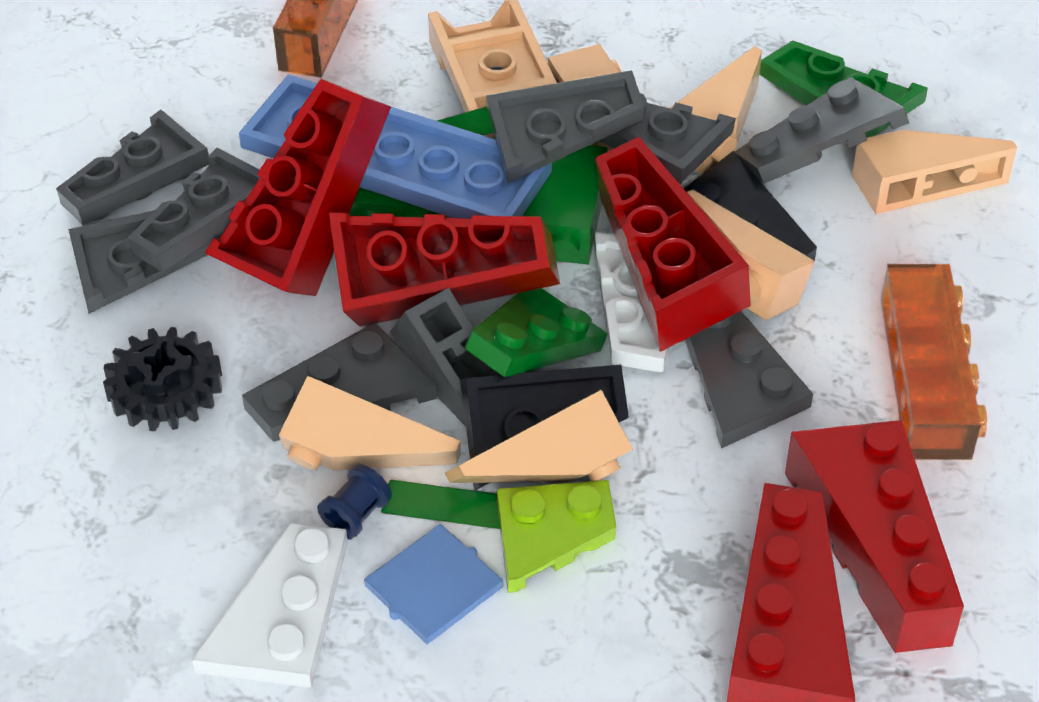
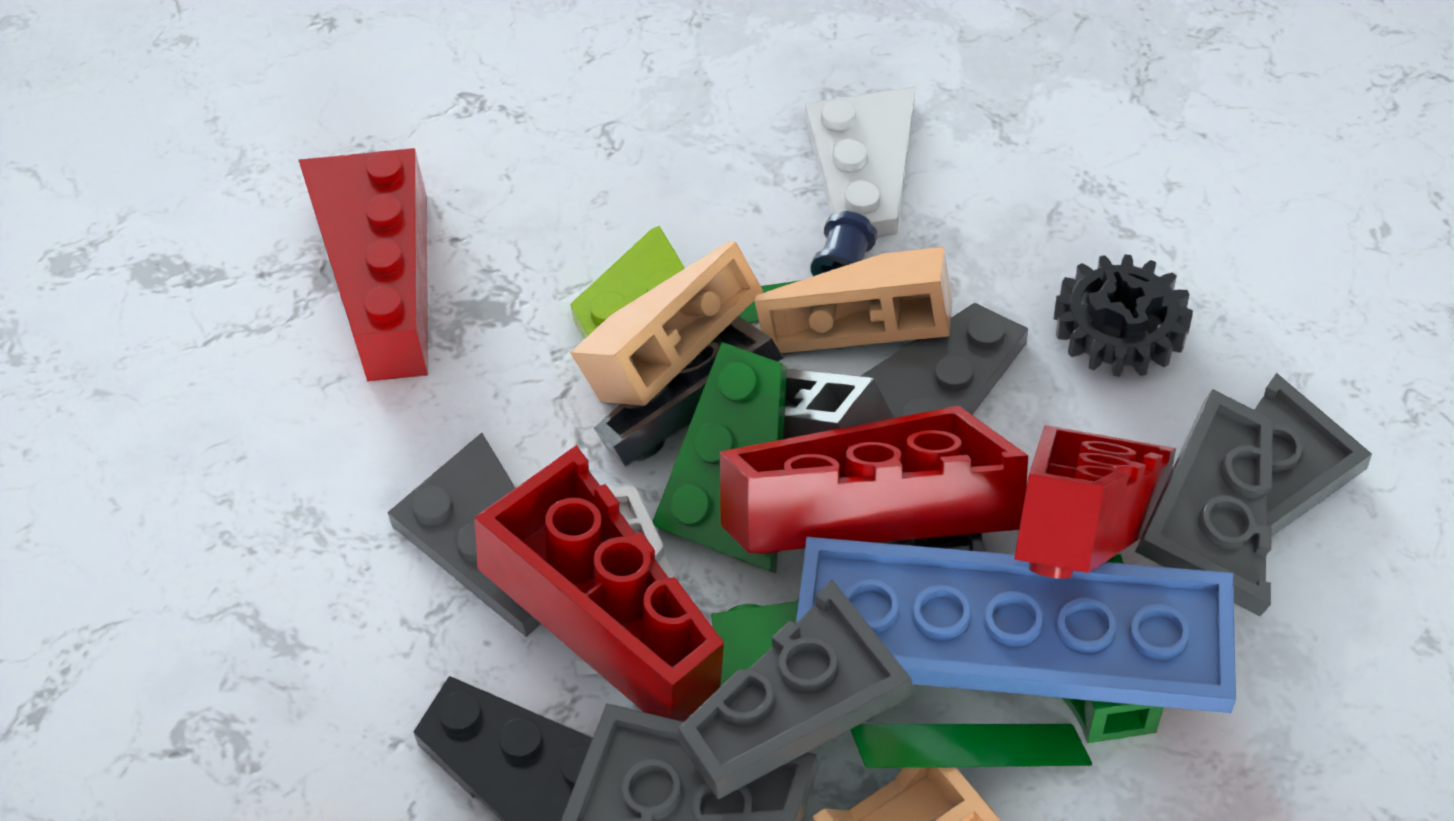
camera: 165 degrees right, 5 degrees up
(141, 166) = (1371, 593): dark grey wing -> none
(433, 583) = (736, 212): medium blue piece -> none
(775, 269) = (495, 648): light nougat slope -> none
(882, 528) = (305, 376): red wedge -> none
(931, 362) = (249, 595): clear orange brick -> none

